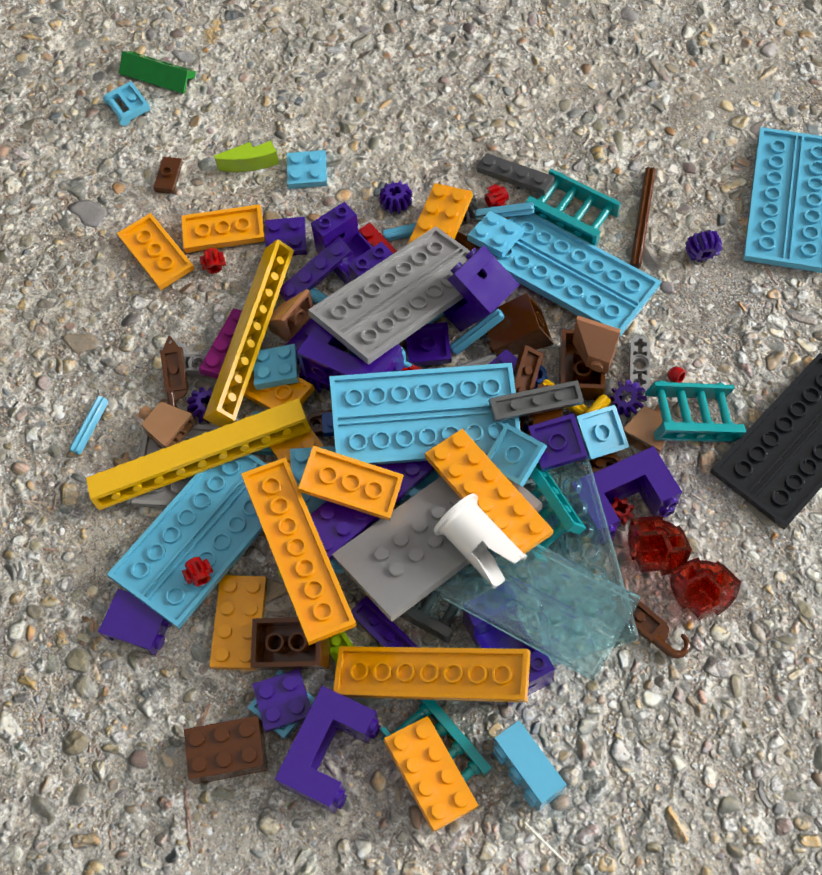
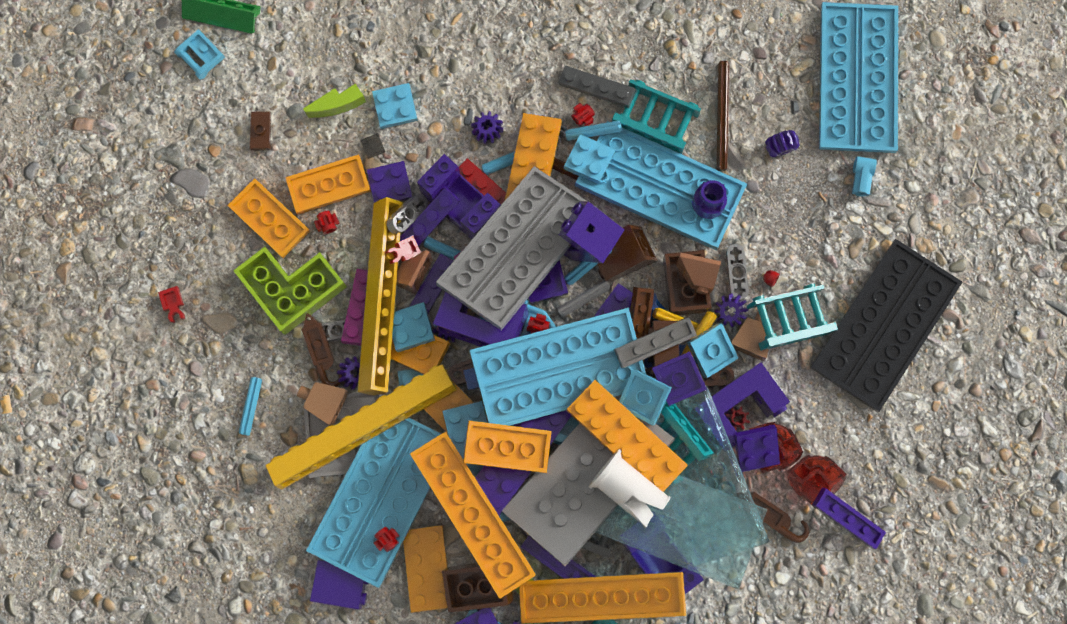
camera: 10 degrees left, 15 degrees up
(35, 314) = (171, 301): none -> red plate
(152, 319) = (289, 297): none -> lime brick
(276, 201) = (372, 146): none -> clear smoke tile
(283, 289) = (404, 250): none -> plate
(289, 258) = (400, 214): none -> light grey beam
(618, 284) = (706, 208): none -> dark purple piece
(638, 537) = (757, 448): none -> dark purple plate
(739, 636) = (849, 518): none -> dark purple plate
(790, 284) = (864, 170): none -> medium azure piece

